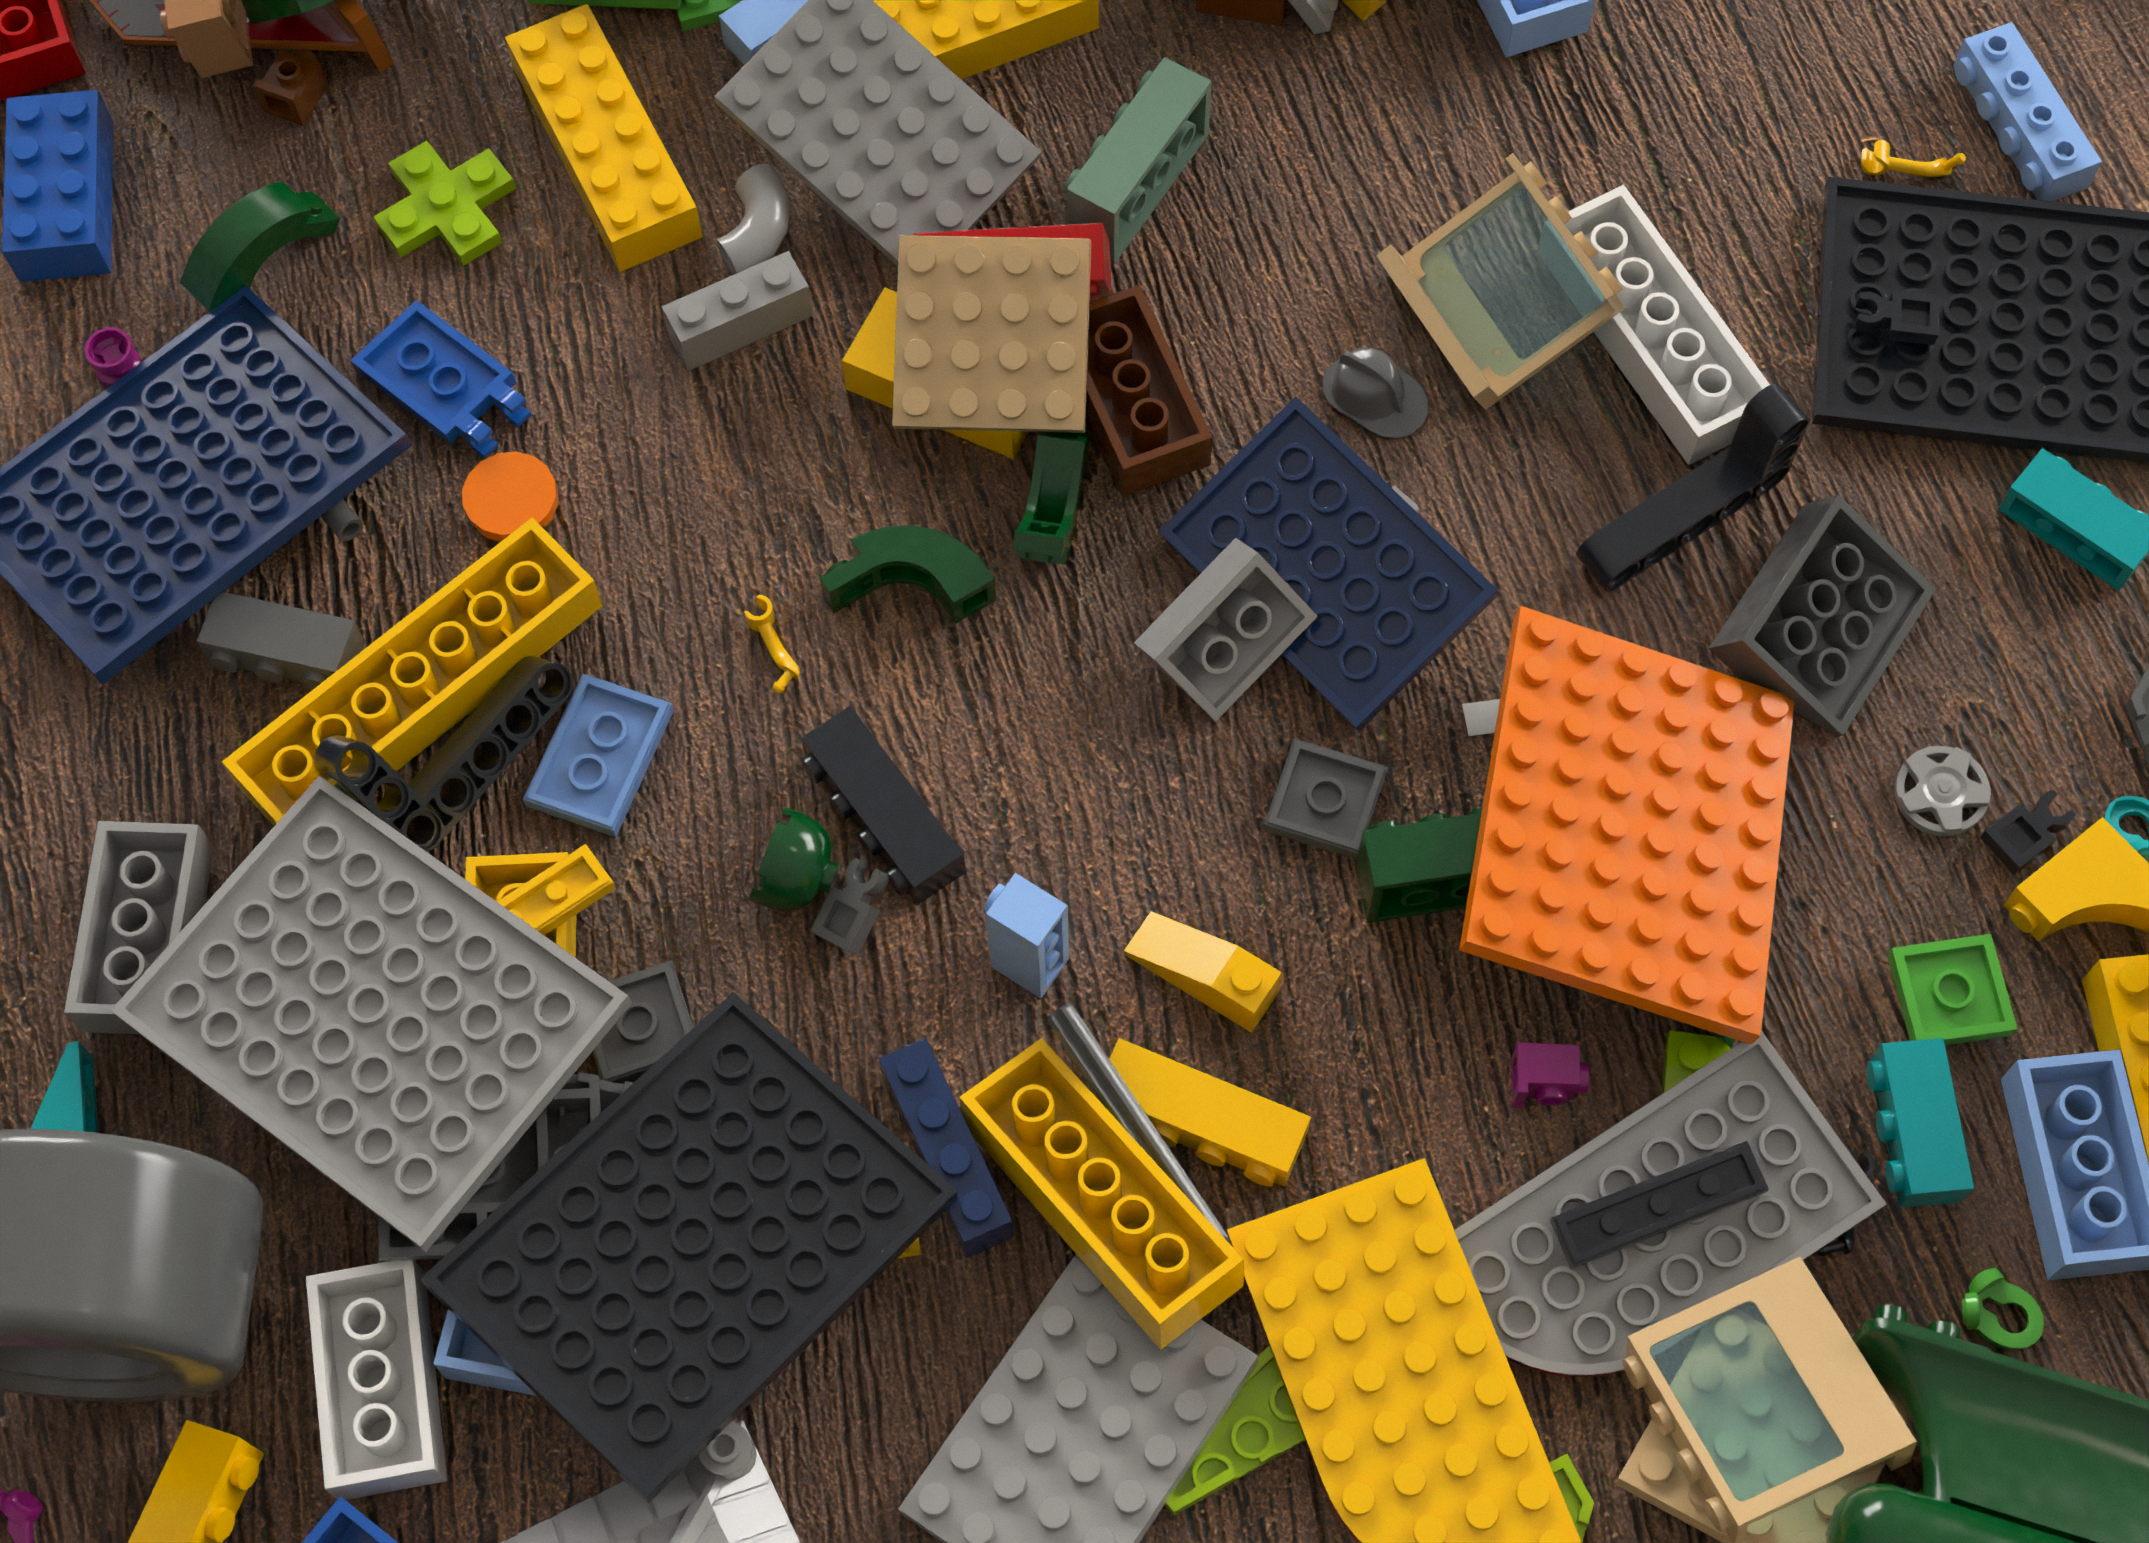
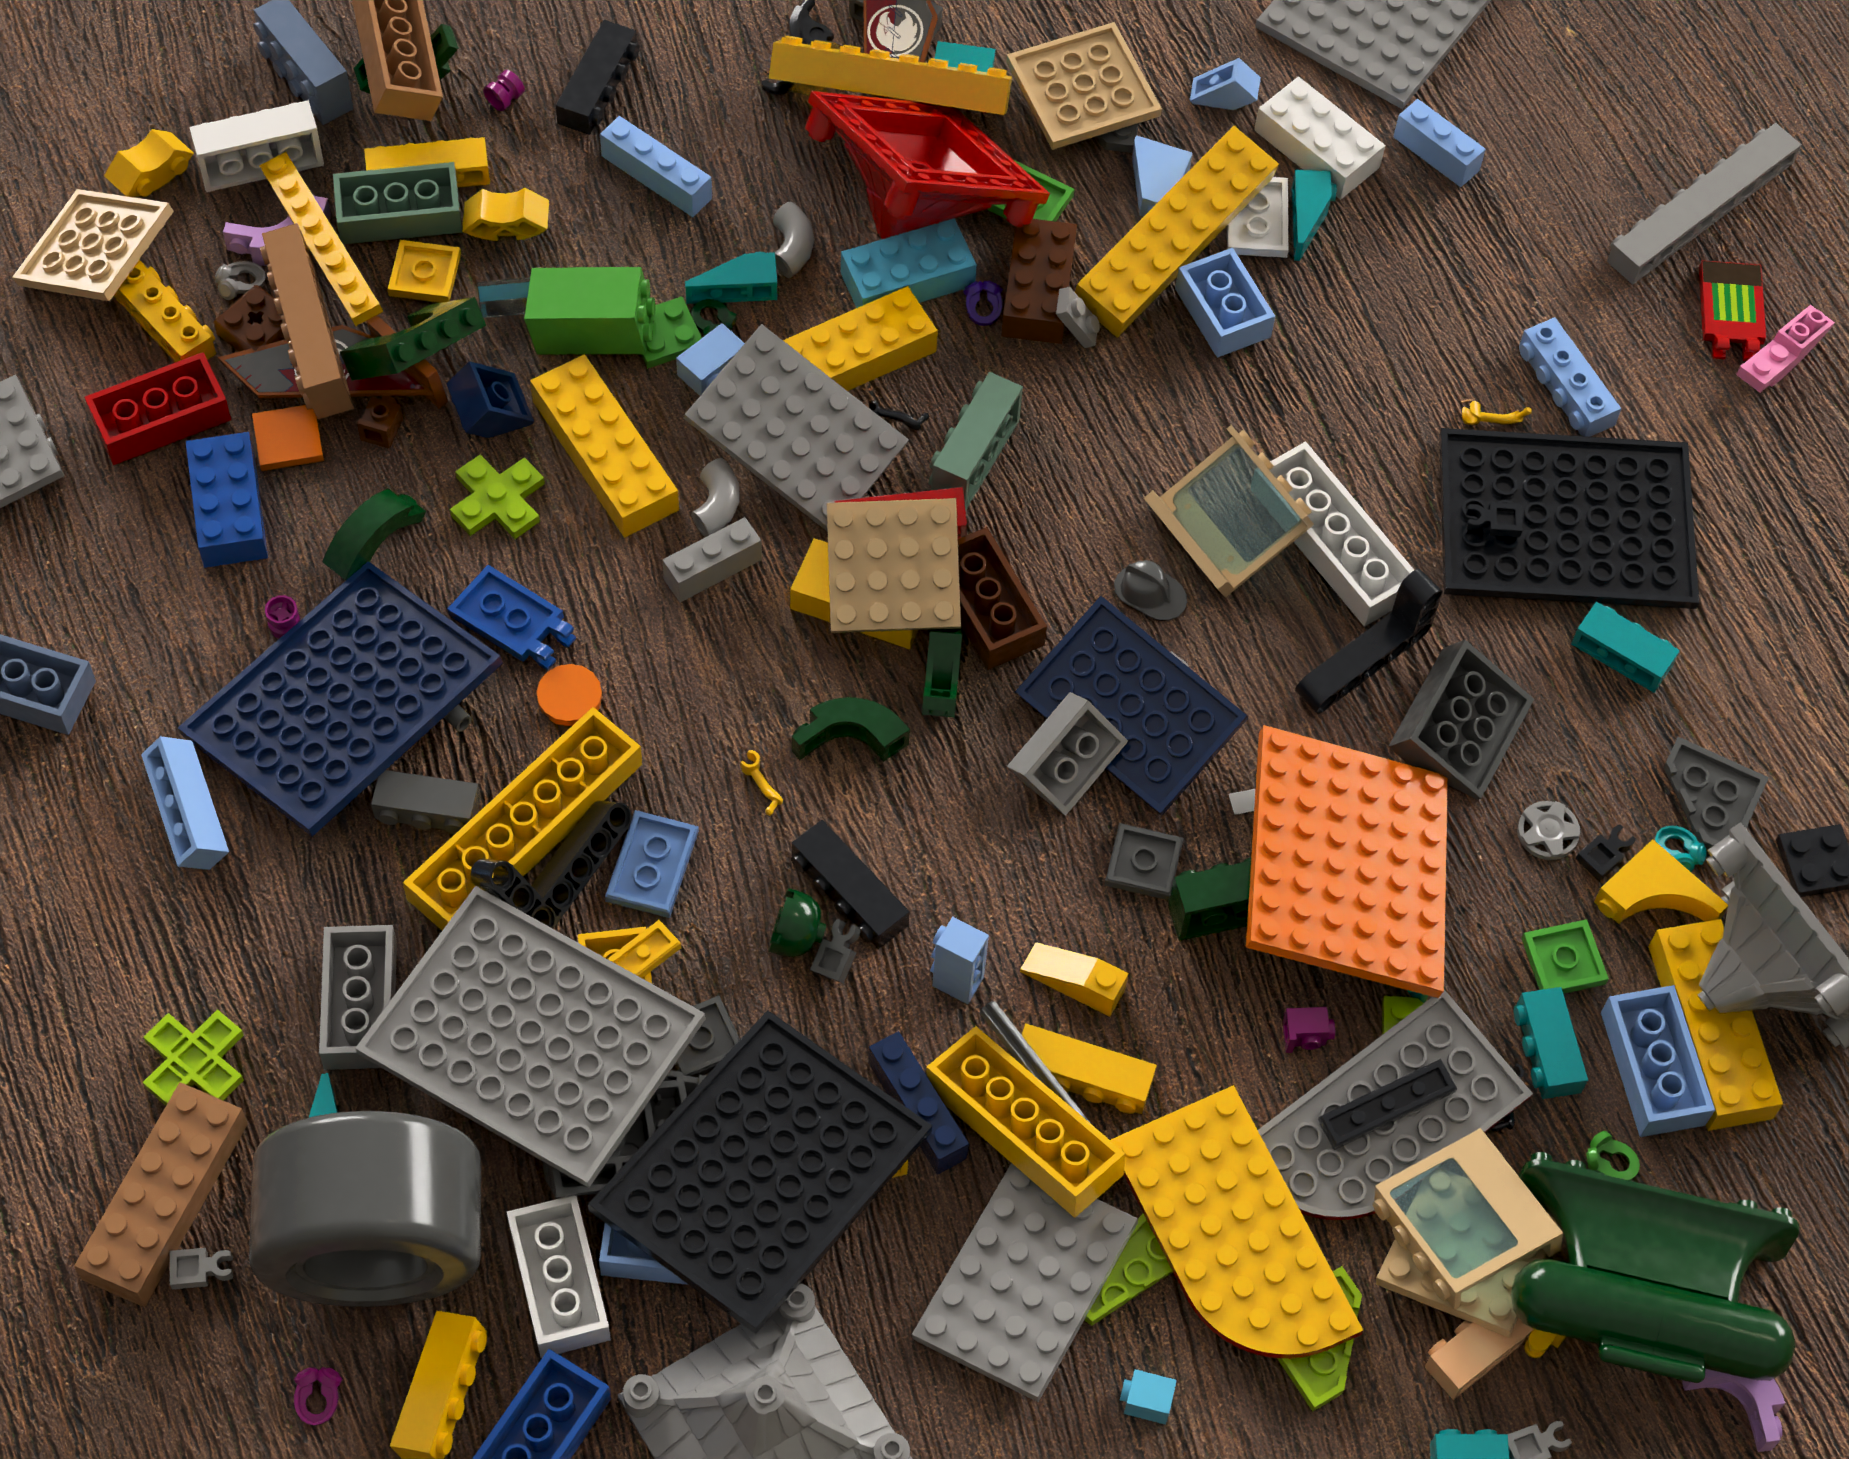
camera: 10 degrees left, 5 degrees down
(159, 103) = (287, 437): none -> orange tile
(448, 64) = (488, 400): none -> dark blue slope
(1033, 118) = (898, 416): none -> black piece

